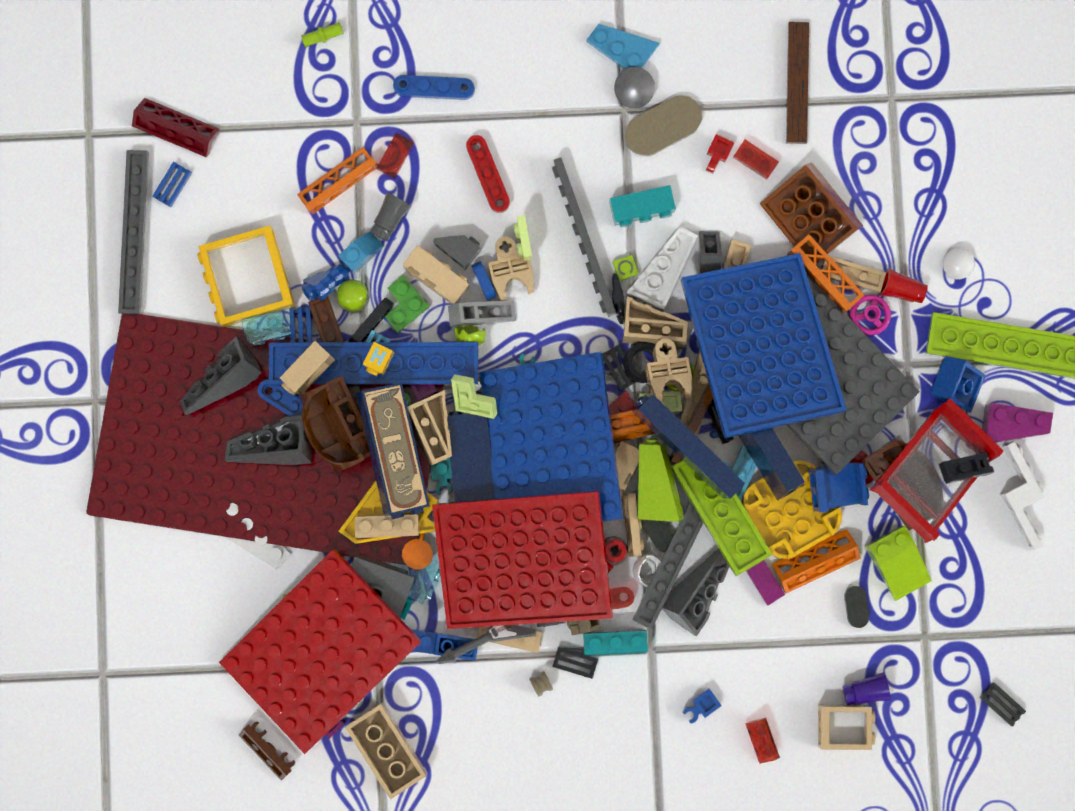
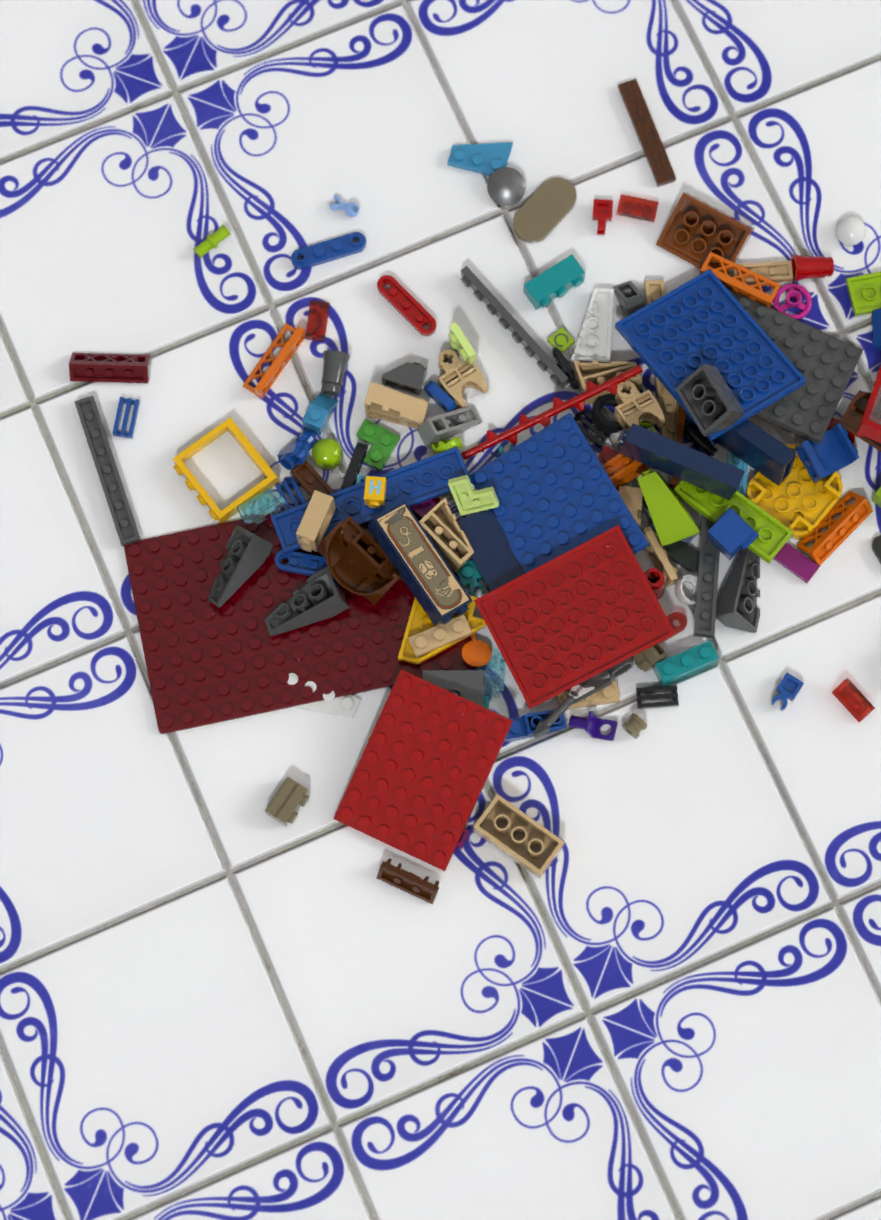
camera: 20 degrees left, 10 degrees down
(180, 629) = (287, 801): none -> dark tan brick
(470, 50) = (351, 209): none -> light blue arm
(501, 667) = (592, 726): none -> dark purple bracket
(593, 339) = (558, 407): none -> red plant
(710, 534) = (731, 534): none -> blue plate
(739, 398) = (709, 400): none -> flat silver slope

